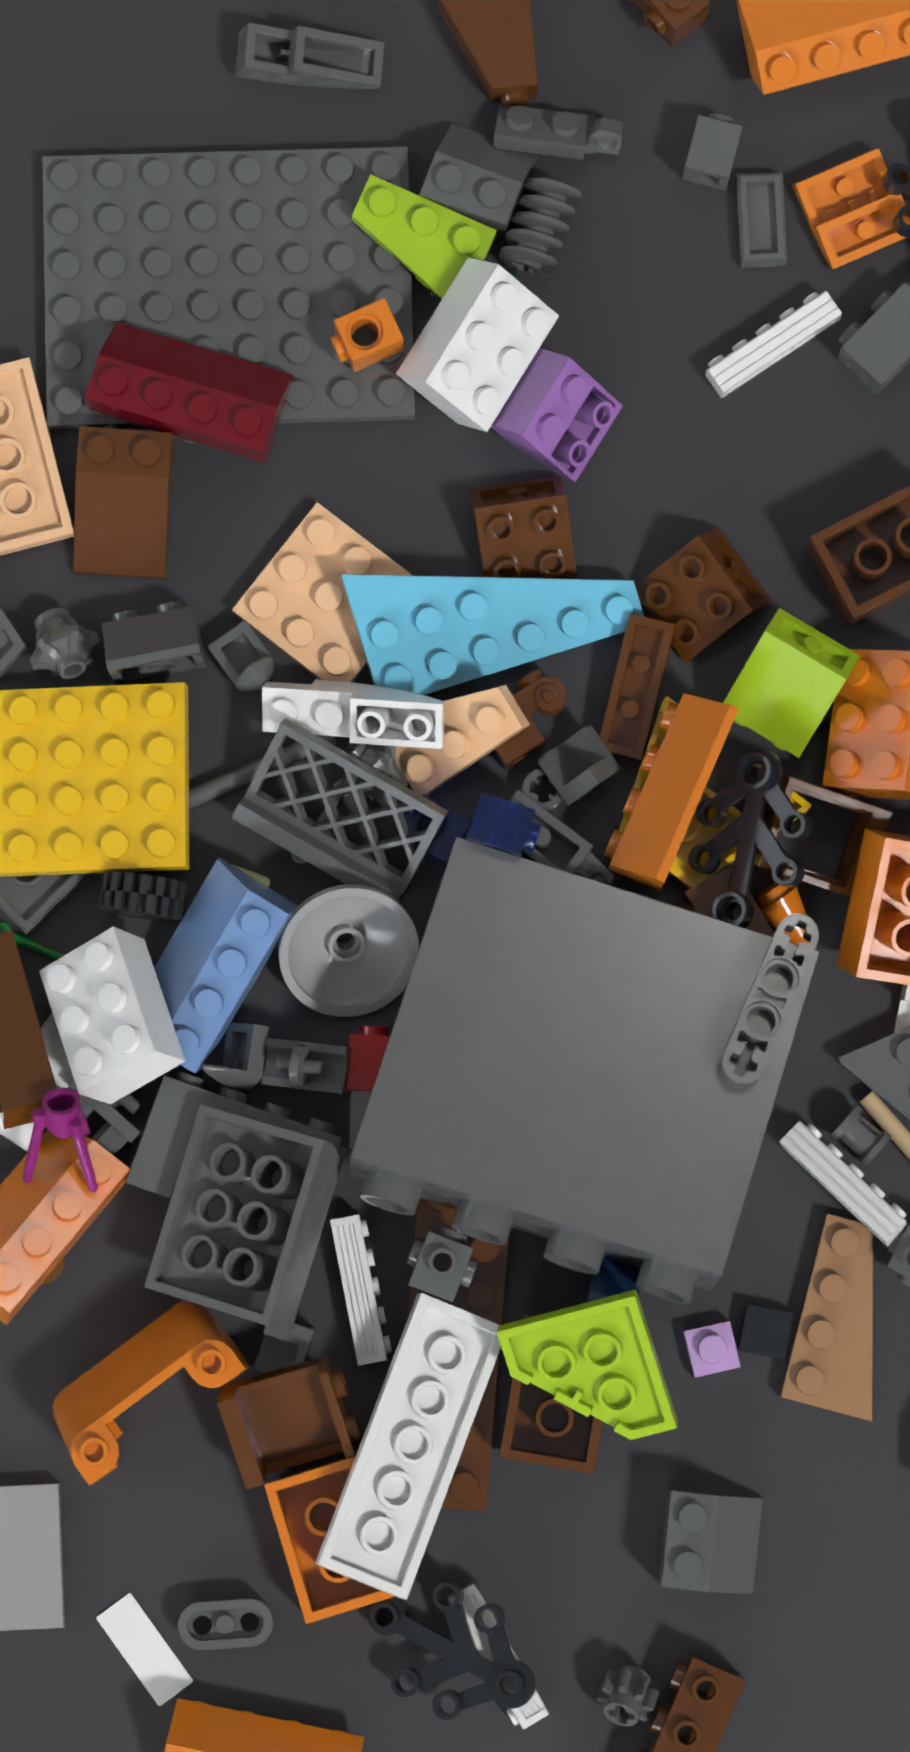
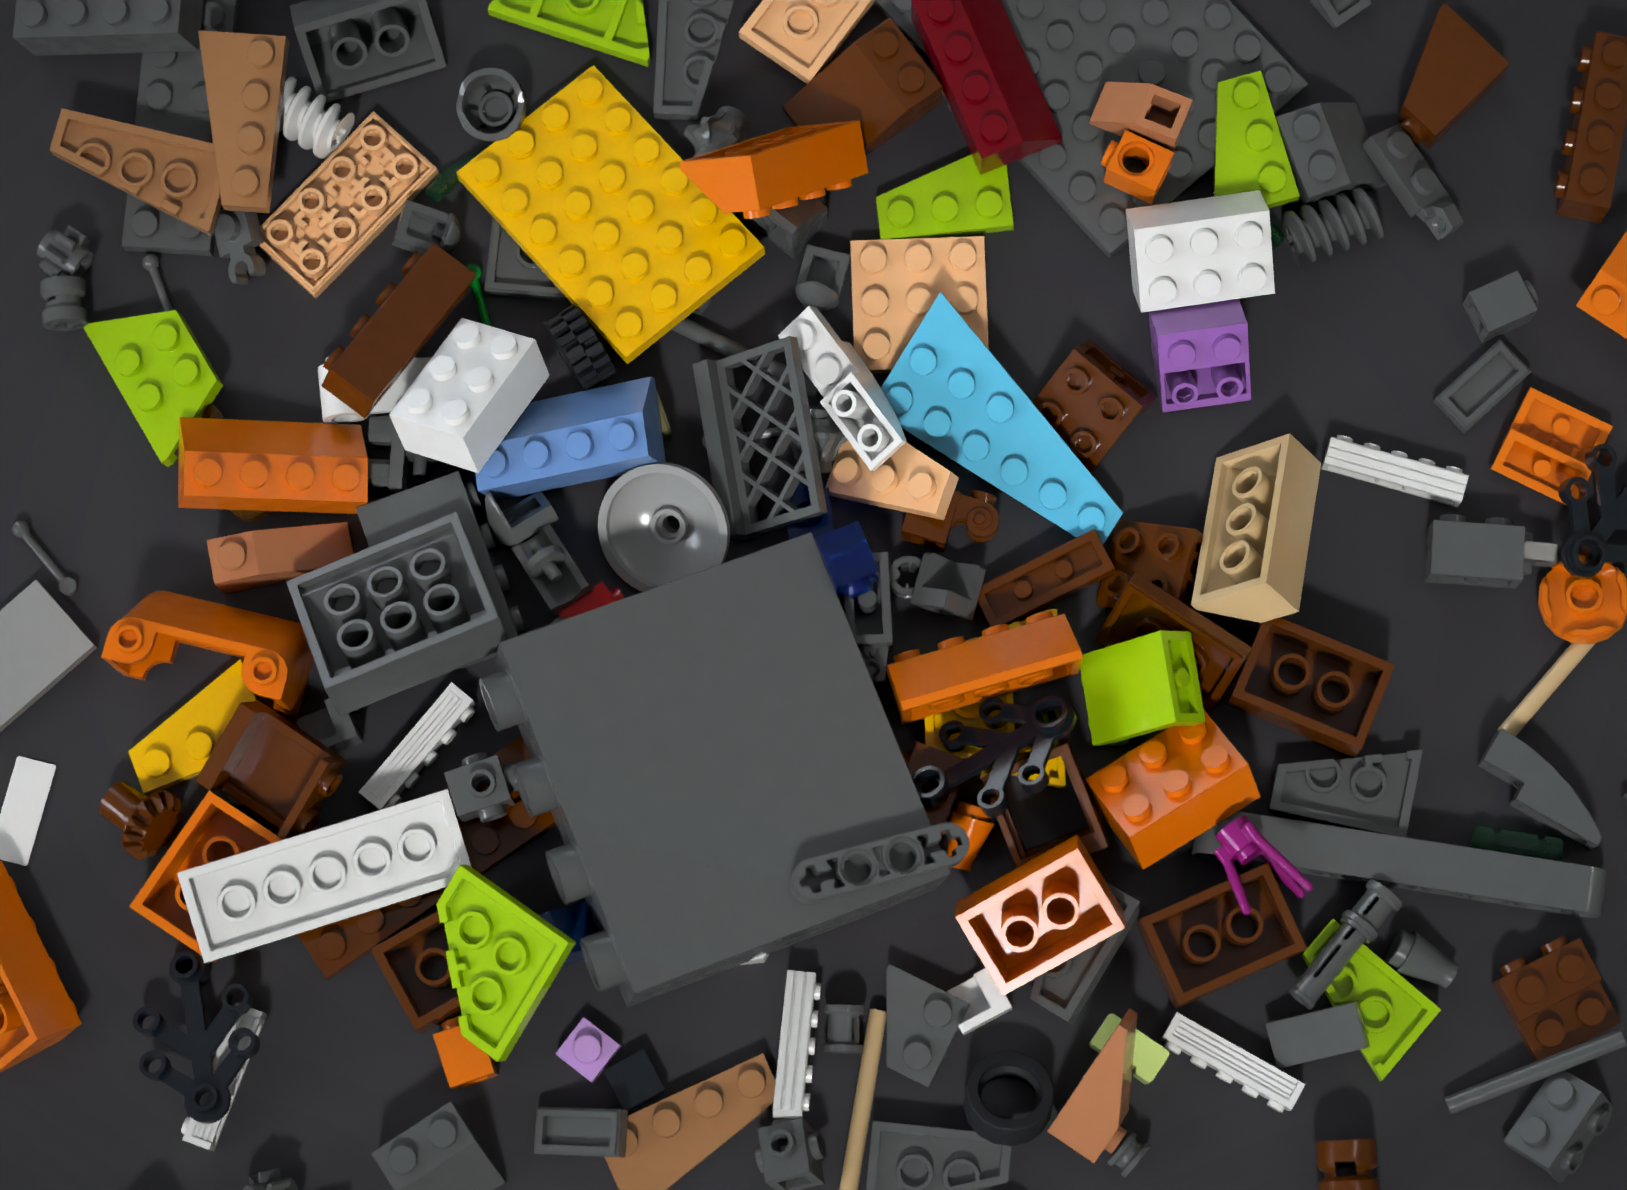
camera: 55 degrees right, 5 degrees down
(64, 1119) = (362, 414): magenta plant -> none
(110, 1273) = (276, 554): none -> nougat slope
(134, 616) = (780, 167): none -> orange slope
(199, 1458) = (187, 738): none -> yellow wing
(226, 1623) = (88, 854): dark grey plate -> none
(237, 1556) = (144, 819): none -> reddish brown gear
(264, 509) = (947, 204): none -> lime wing
(328, 294) = (1142, 110): none -> nougat slope
(640, 1456) = (461, 1059): none -> orange brick
(736, 626) = (1149, 609): none -> reddish brown tile
(739, 489) = (1257, 531): none -> tan slope
(774, 1407) = (580, 1132): none -> dark grey tile

